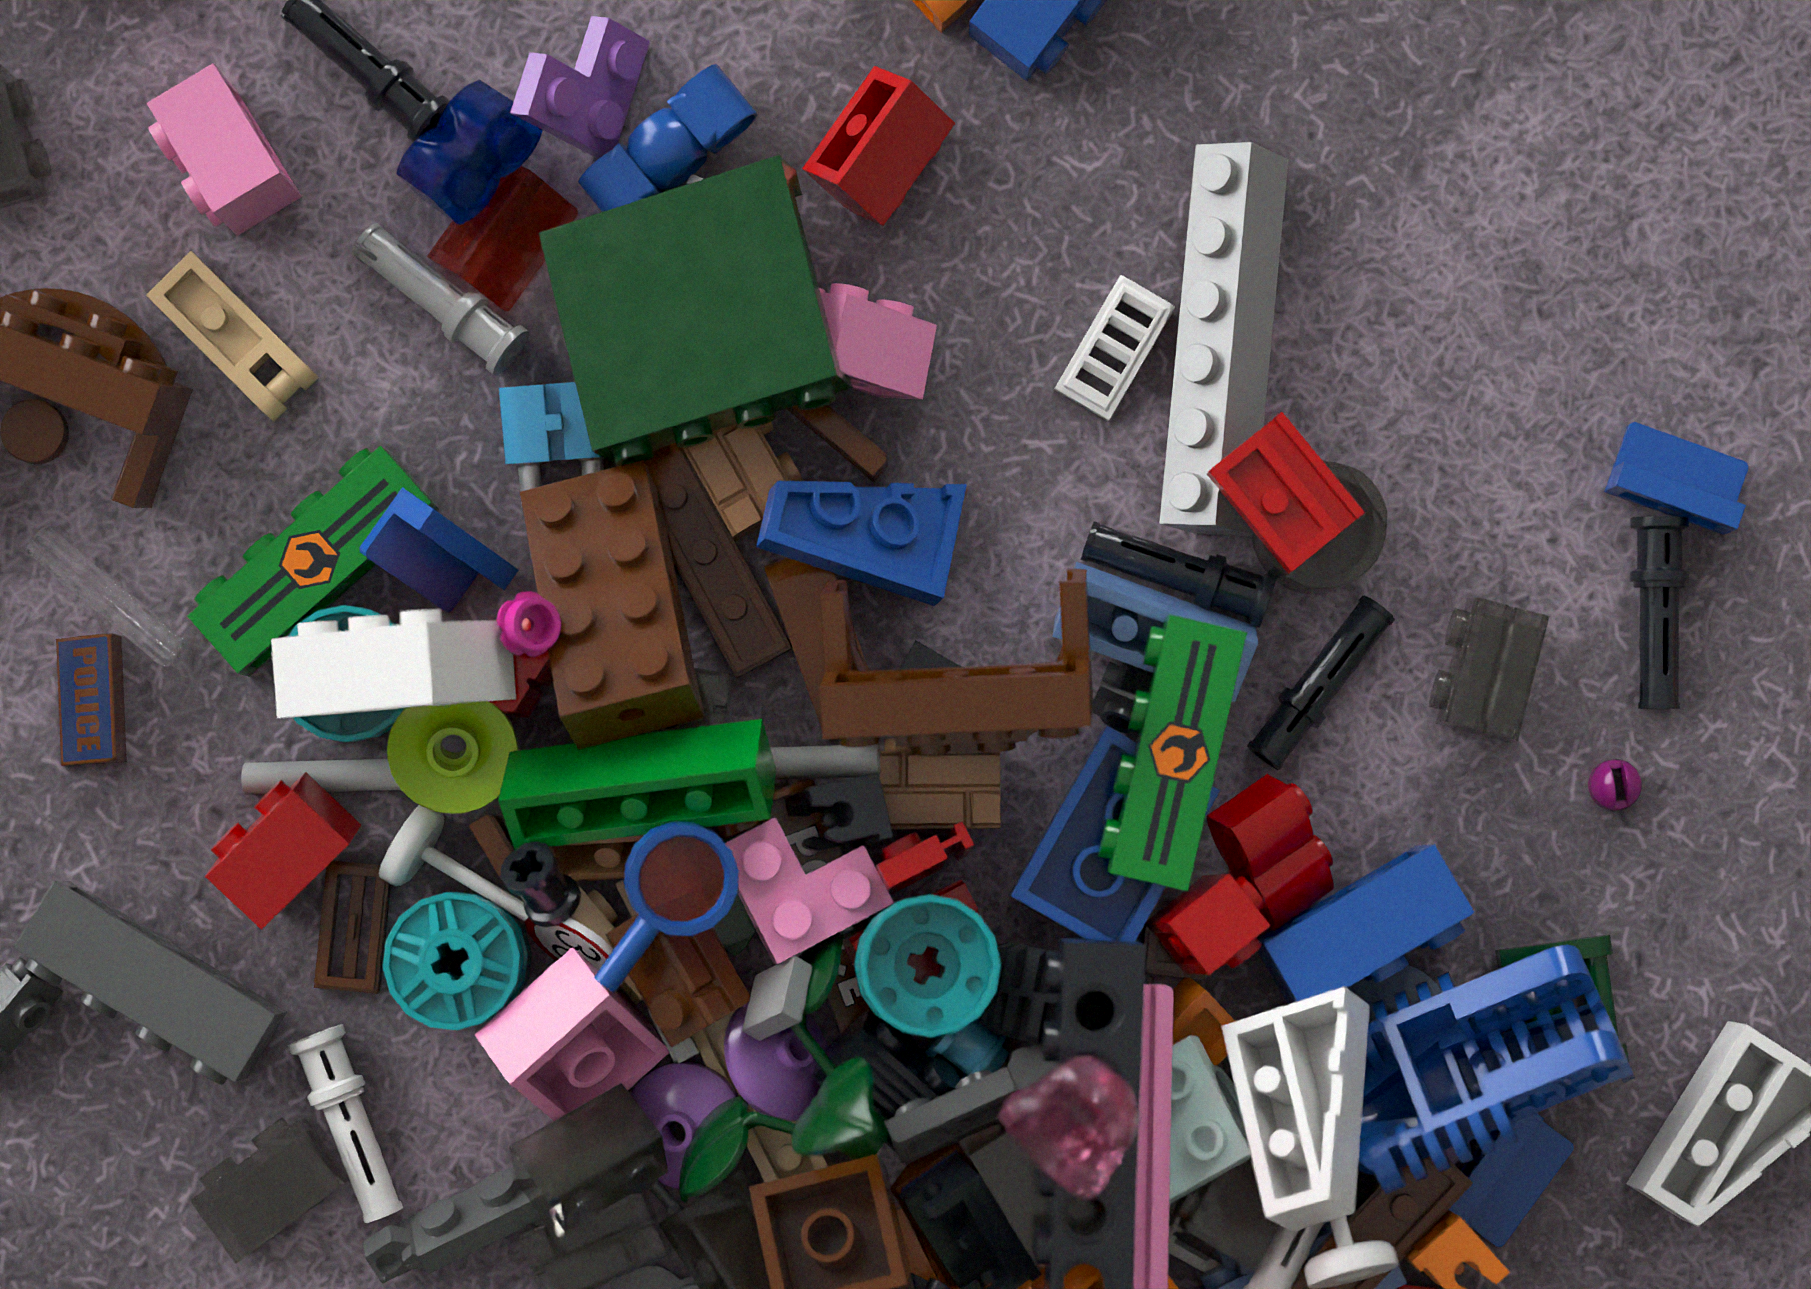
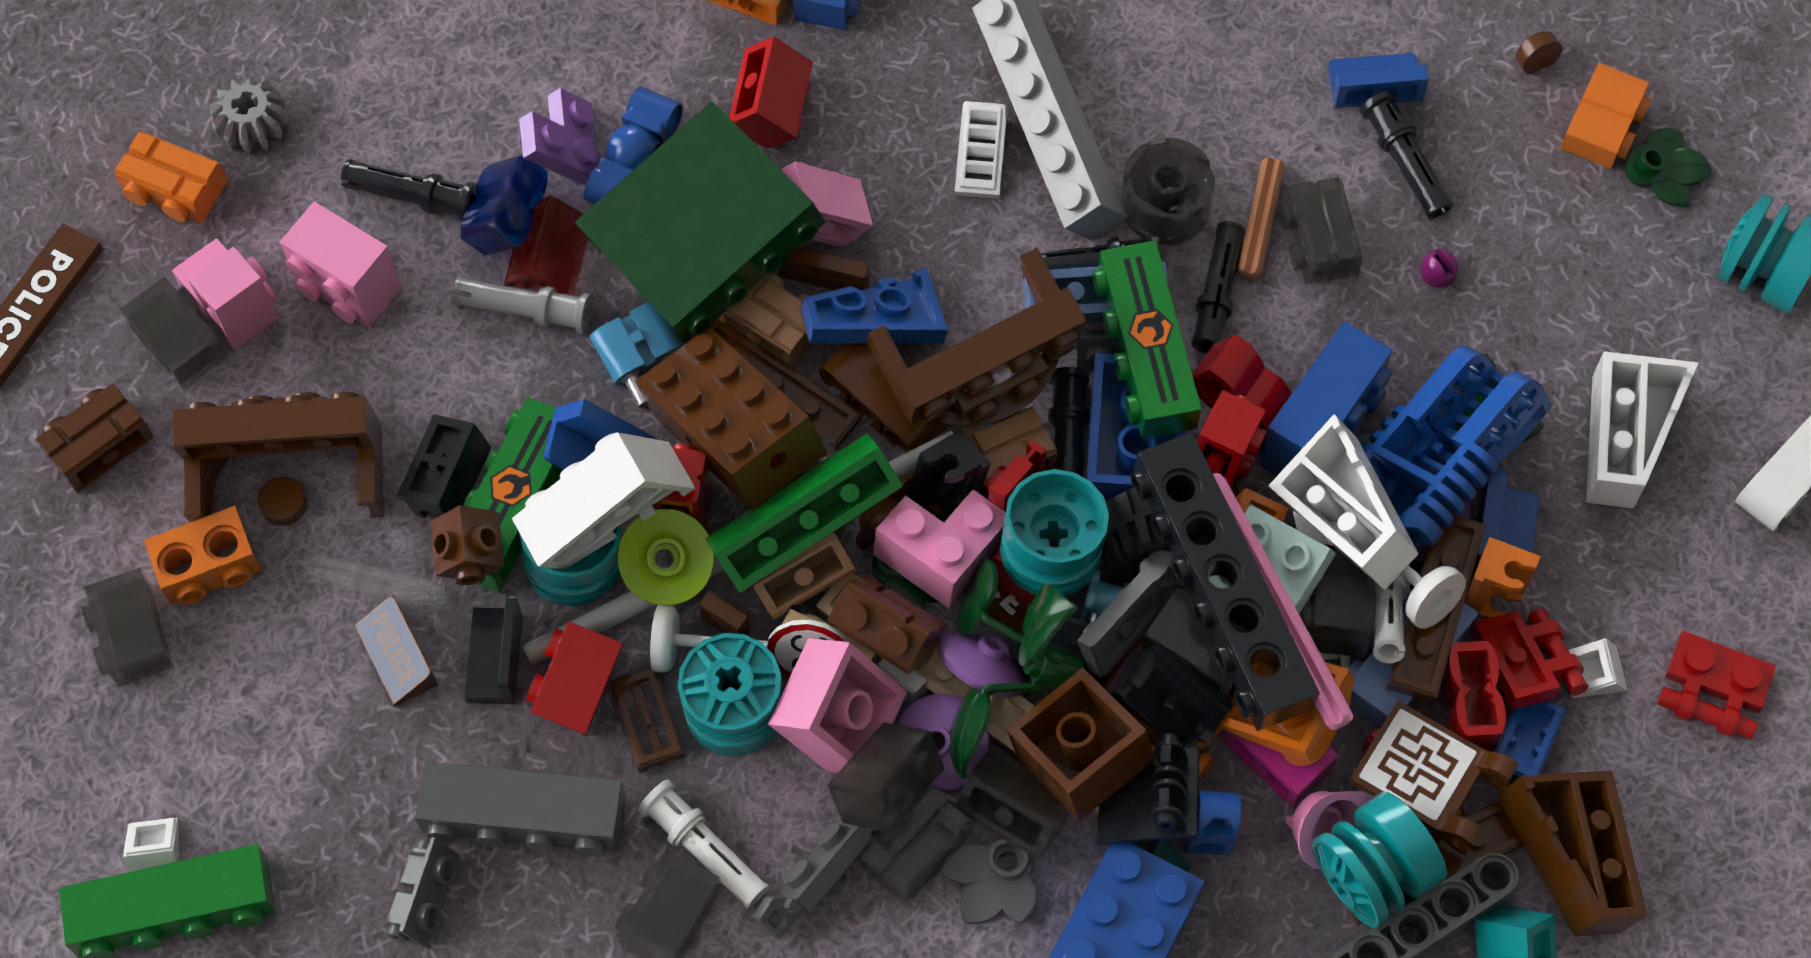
camera: 25 degrees left, 20 degrees down
(69, 114) = (229, 291): none -> bright pink brick
(205, 759) = (494, 654): none -> black panel
(212, 633) = (467, 544): none -> reddish brown brick
(230, 334) = (392, 382): tan plate -> none
(243, 489) = (444, 466): none -> black hinge
(535, 877) = (767, 604): black bush -> none
(543, 619) = (683, 432): dark pink plate -> none
(679, 884) = (862, 553): piece -> none
(777, 998) = (964, 609): light grey tile -> none
(1044, 774) = (1069, 416): none -> black pin
(1075, 1123) = (1203, 545): clear pink hair -> none
(1285, 492) = (1135, 163): red plate -> none
(1425, 610) = (1261, 219): none -> nougat axle

